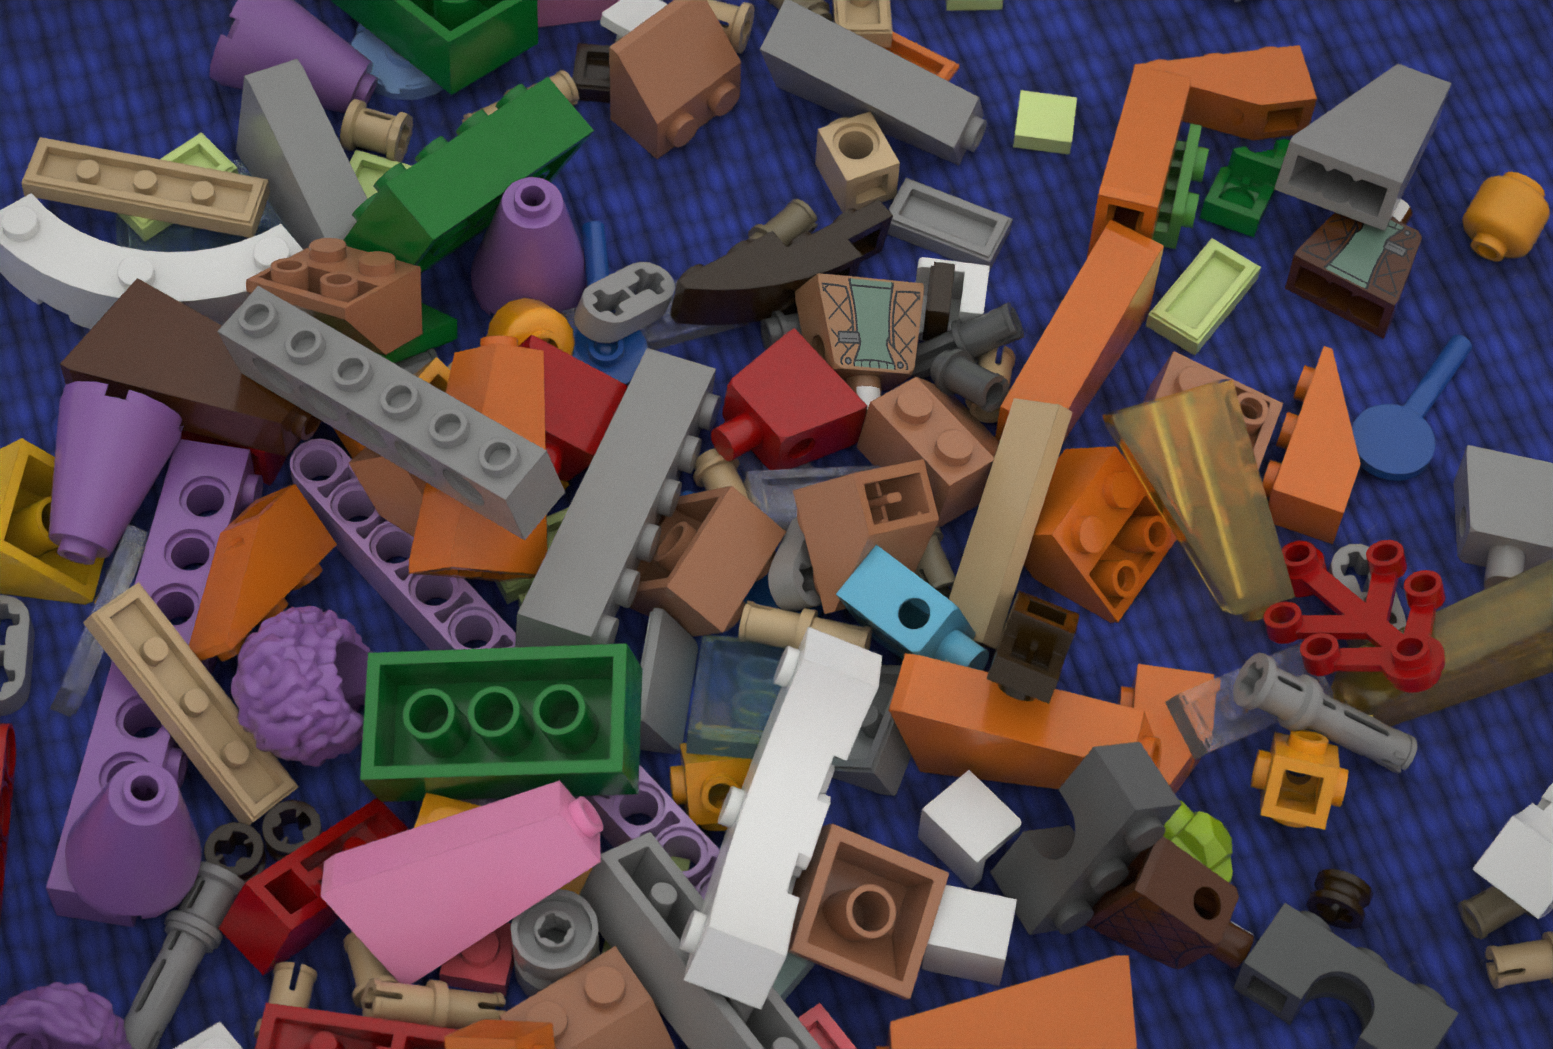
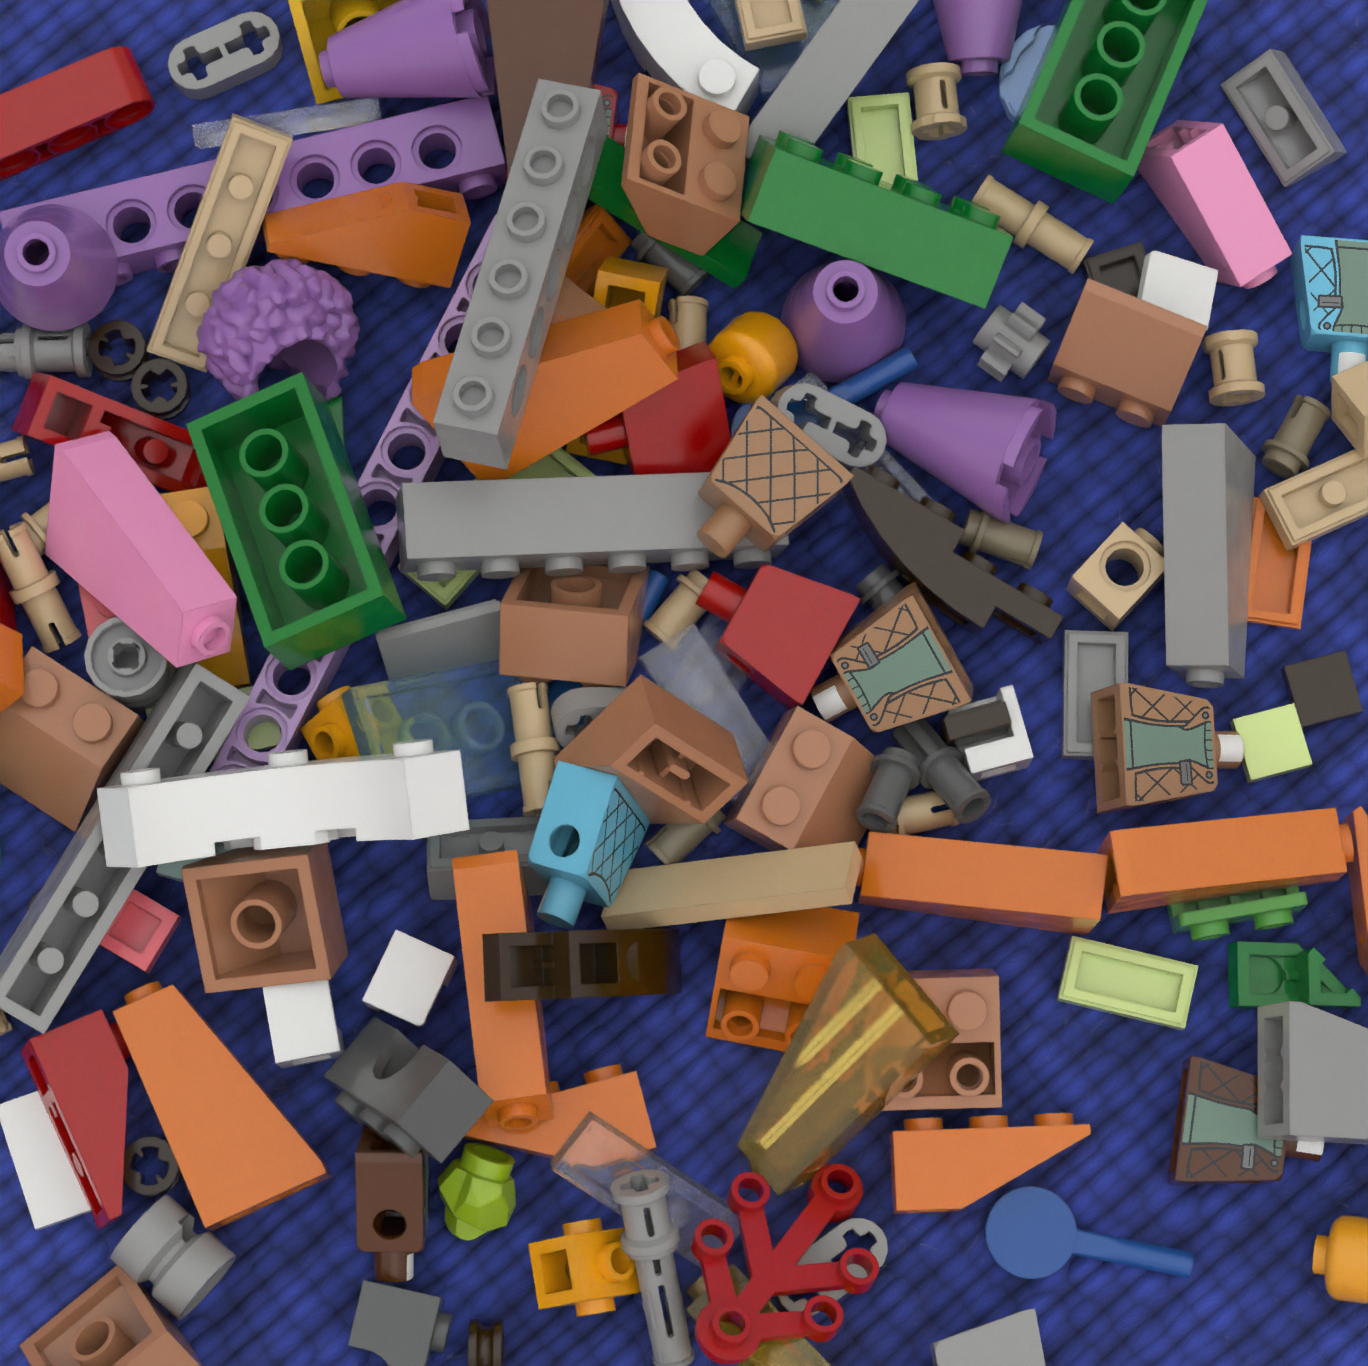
camera: 70 degrees right, 20 degrees up
(617, 155) = (1011, 341): none -> light grey gear
(656, 347) = (767, 482): none -> medium nougat torso
(692, 207) = (971, 440): none -> medium lavender cone
(1015, 69) = (1322, 689): none -> dark brown tile
(1016, 188) = (1156, 747): none -> medium nougat torso

